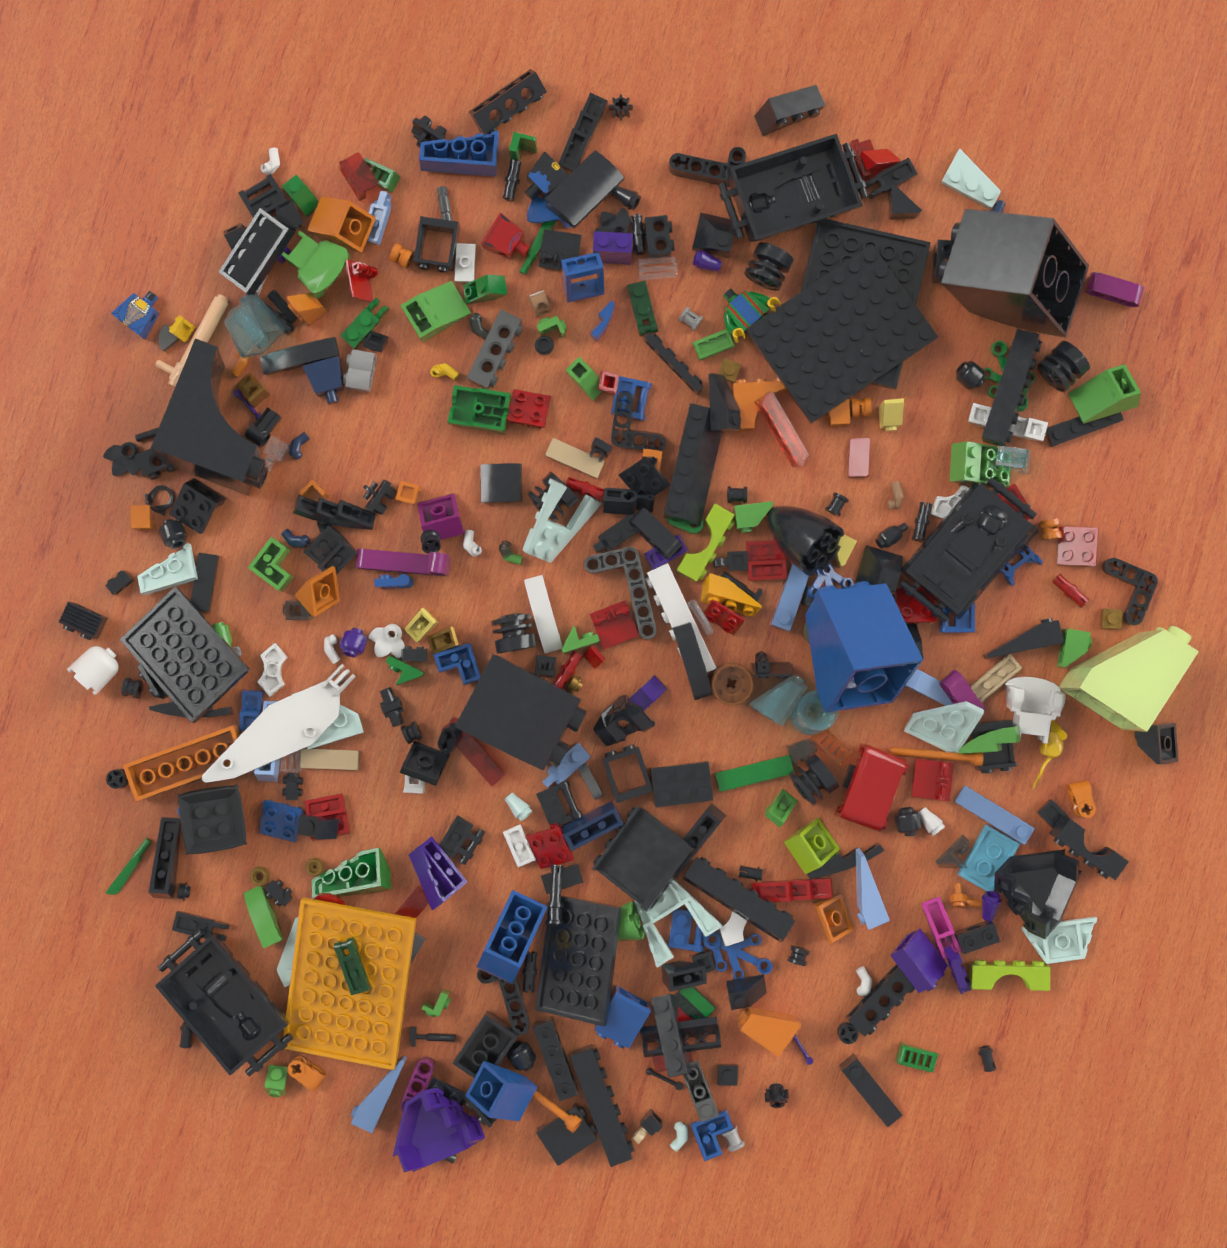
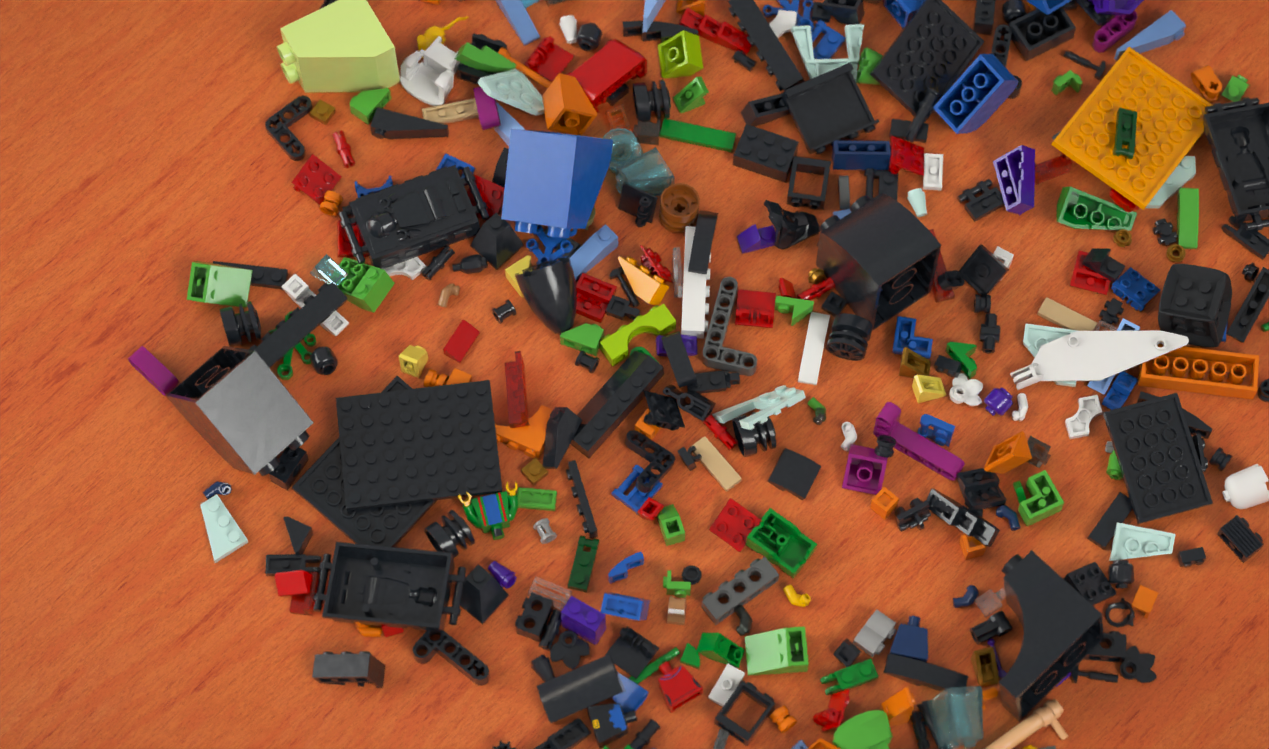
camera: 155 degrees left, 20 degrees down
(294, 564) = (1019, 491): none -> green tile
(509, 272) = (690, 657): none -> green tile
(888, 732) = (567, 106): none -> orange slope

